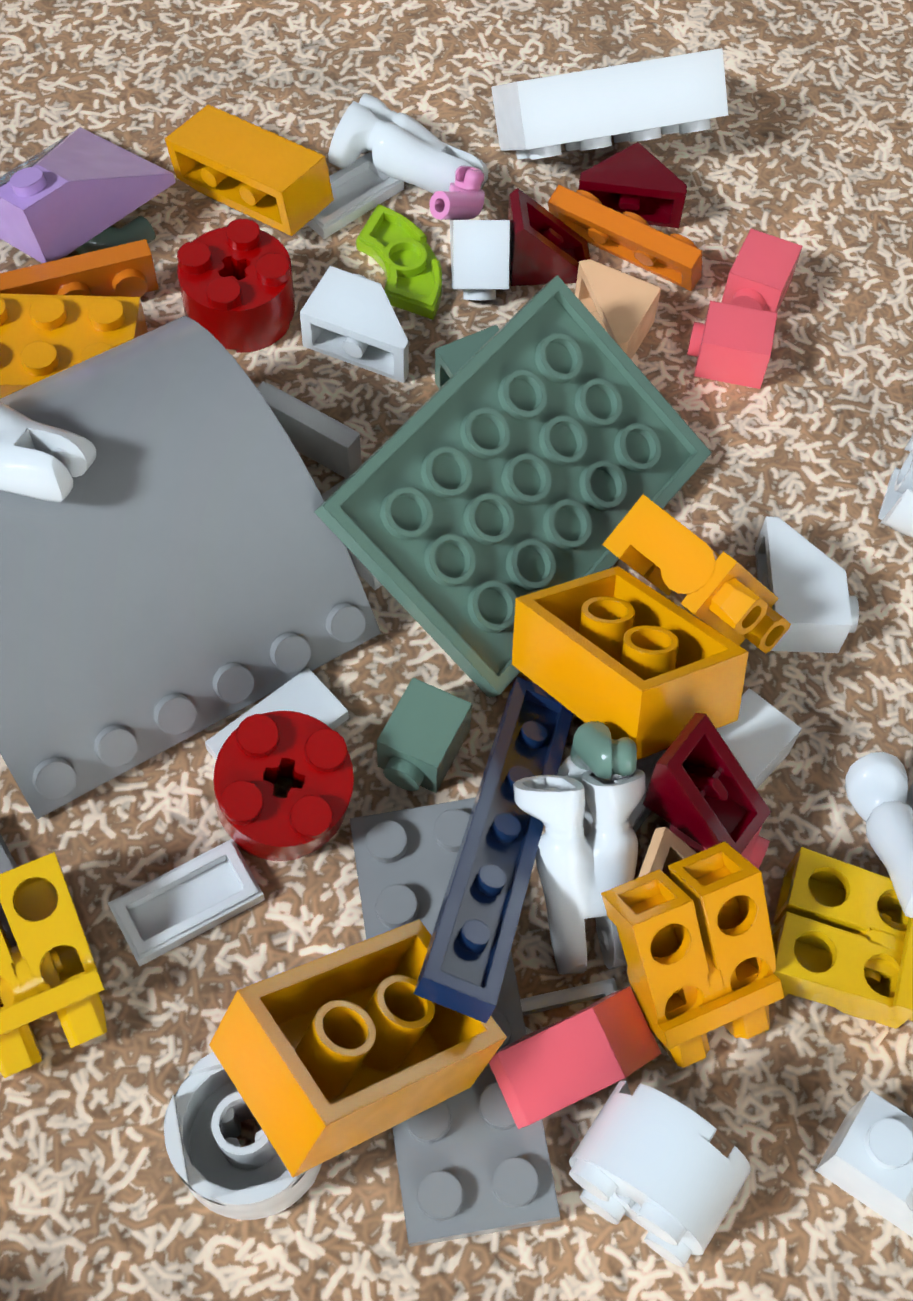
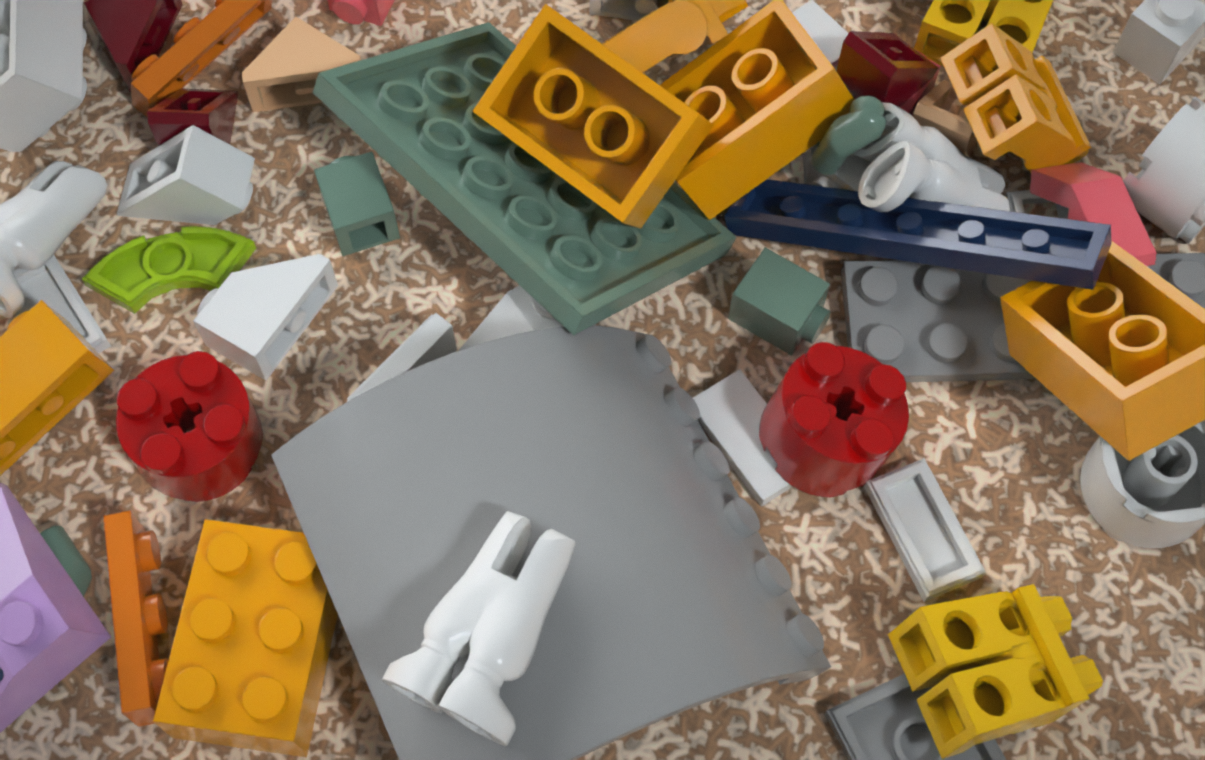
camera: 80 degrees left, 5 degrees up
(464, 196) = (119, 178): bright pink arm -> none
(554, 497) = (592, 118): none -> light orange brick

